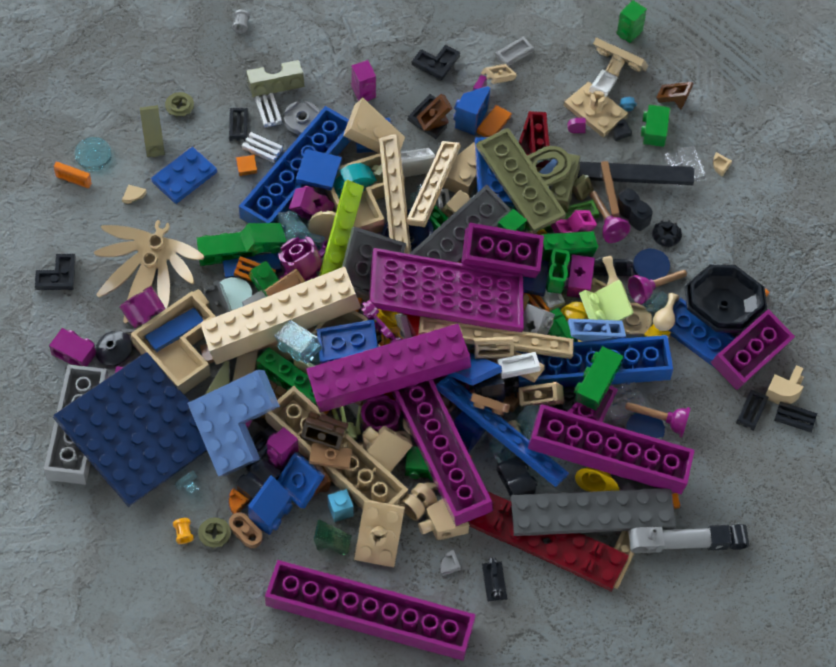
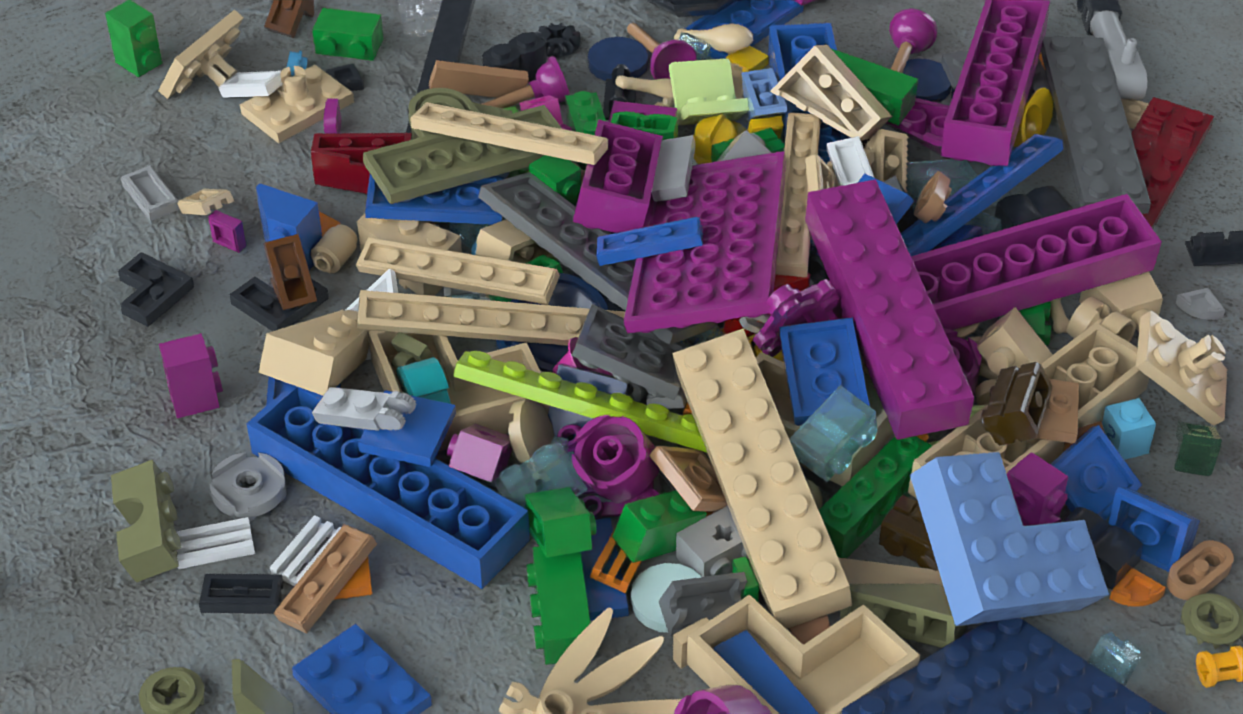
camera: 85 degrees left, 15 degrees down
(241, 153) = (325, 578): none -> medium nougat tile
(325, 147) = (363, 409): none -> light grey hinge
(443, 262) = (649, 241): none -> blue tile
(466, 135) = (334, 248): none -> tan brick
(517, 279) = (673, 168): none -> light grey tile
(521, 191) = (510, 133): none -> tan tile
(575, 357) = (832, 93): none -> tan wedge

